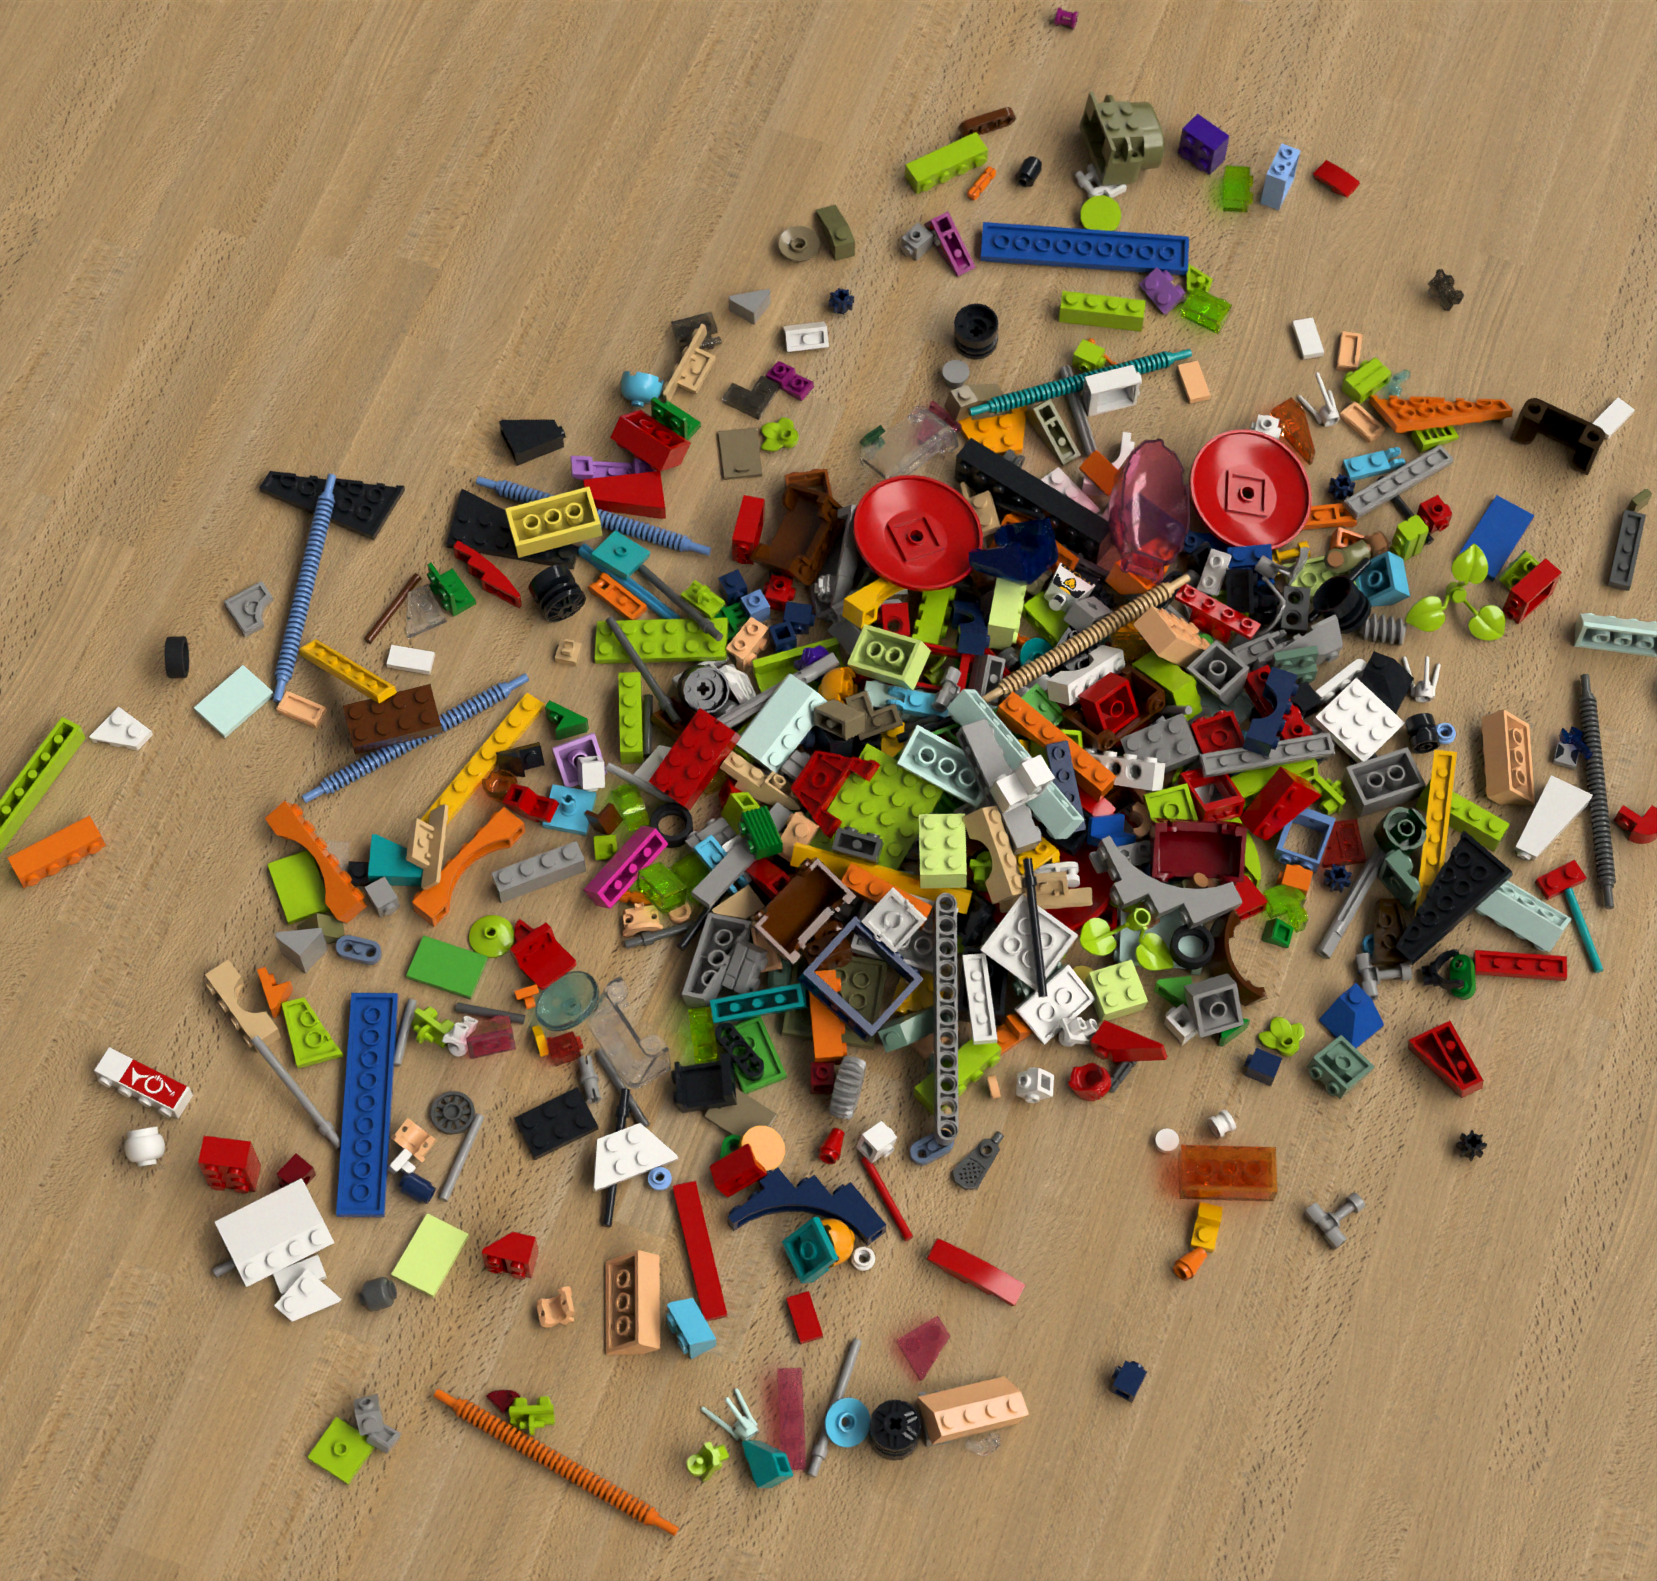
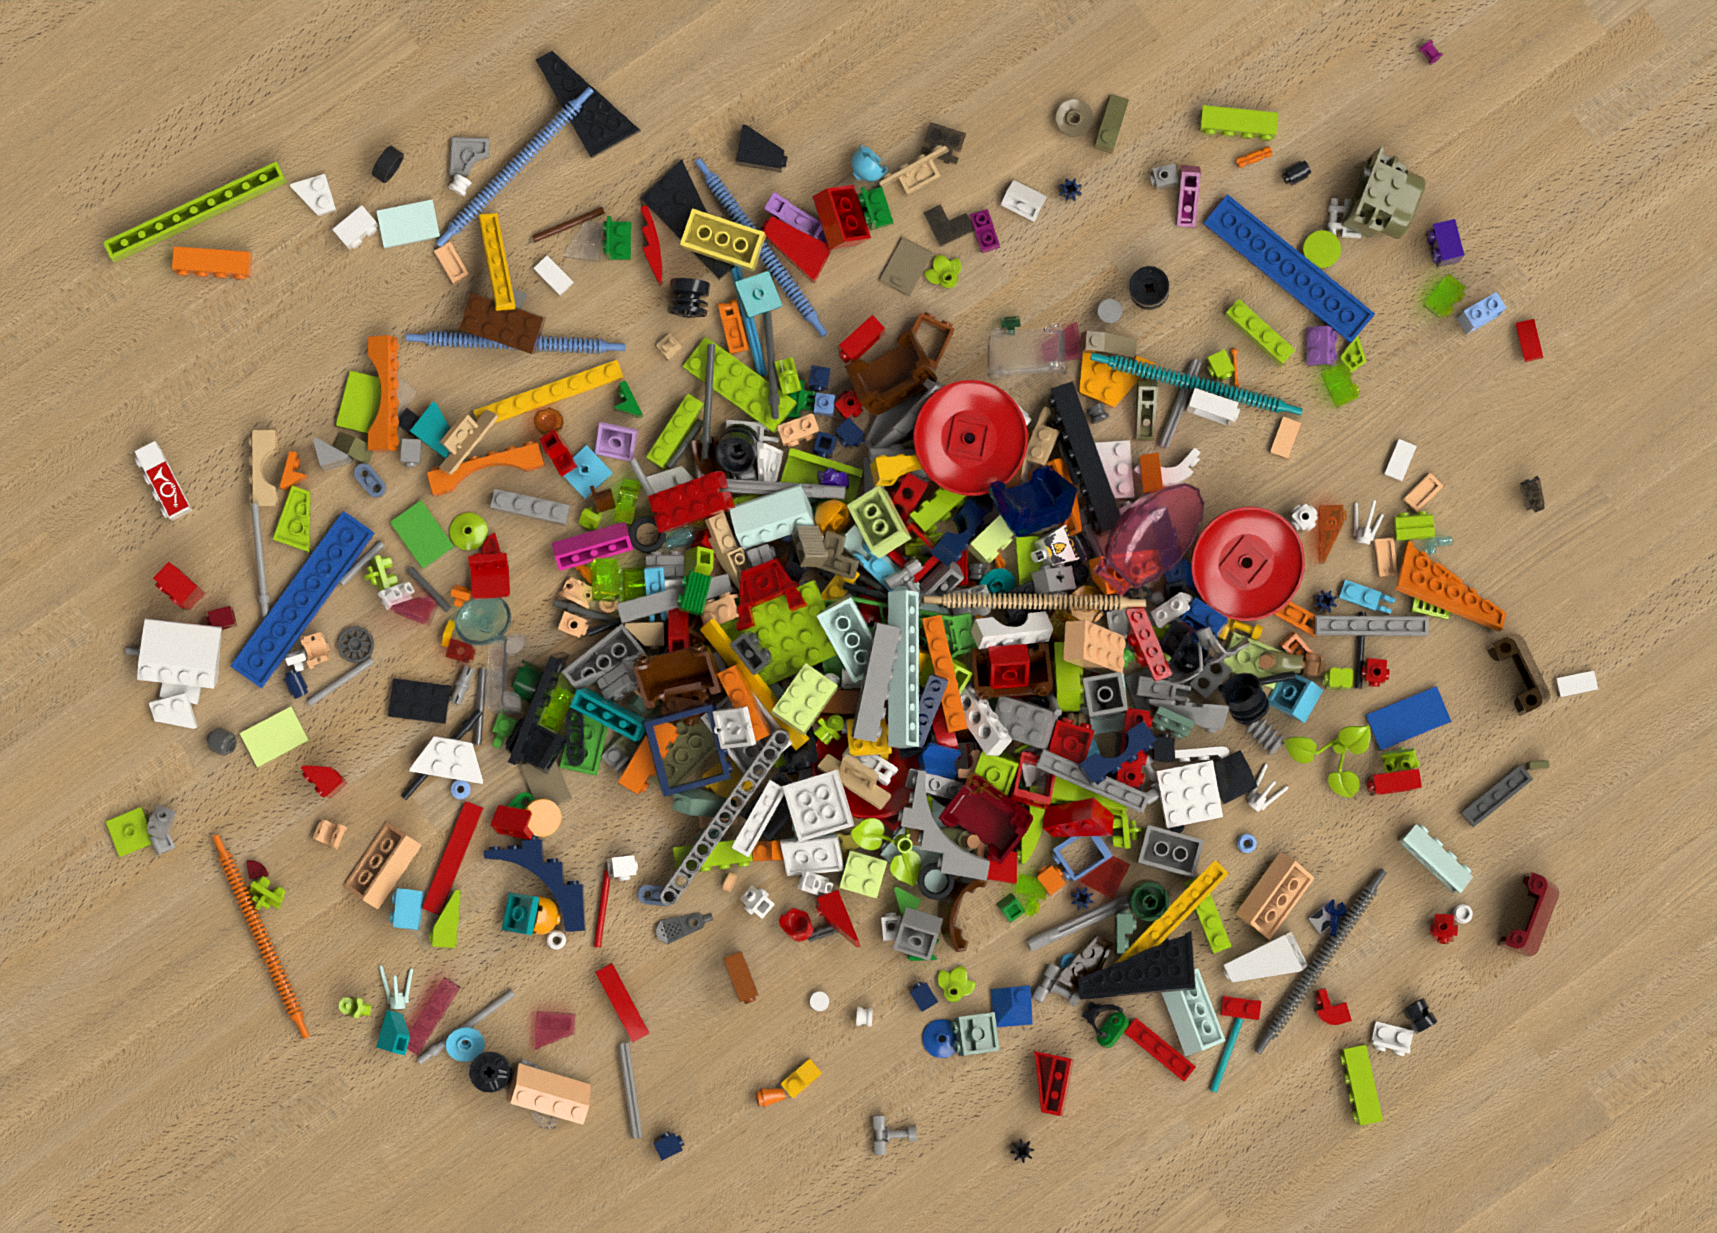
camera: 35 degrees right, 20 degrees up
(144, 1146) = (134, 529): white piece -> none
(183, 734) = (355, 228): none -> white brick
(261, 635) = (459, 184): none -> white wheel
(521, 759) = (577, 410): black slope -> none
(591, 773) = (617, 457): white brick -> none
(654, 1021) = (527, 680): none -> dark green brick
(660, 958) = (566, 621): none -> light nougat brick
(661, 1093) = (503, 728): none -> bright green plate
(683, 1035) = (541, 700): none -> black wing
(706, 807) = (680, 538): none -> clear light blue cone
(745, 1323) = (446, 928): none -> lime slope
(750, 305) = (1000, 147): light grey slope -> none
(794, 1047) = (616, 758): none -> light grey bracket
(804, 1317) = (489, 952): red tile -> none
(822, 1078) = (617, 795): dark red brick -> none
(825, 588) = (883, 425): white gear -> none
(831, 1147) = (590, 848): red cone -> none
(847, 1087) = (628, 816): light grey gear -> none
(987, 122) = (1297, 106): reddish brown beam -> none
(1005, 879) = (844, 709): tan arch -> none
(1023, 785) = (885, 697): white brick -> none
(1030, 883) = (844, 767): black bar -> none
(1073, 1379) = (630, 1090): none -> light grey axle
(1075, 1164) = (741, 977): none -> dark orange window
(1227, 1173) = (839, 1054): clear orange brick -> none
(1307, 1106) = (931, 1041): none -> blue dish
(1422, 732) = (1228, 833): black wheel -> none

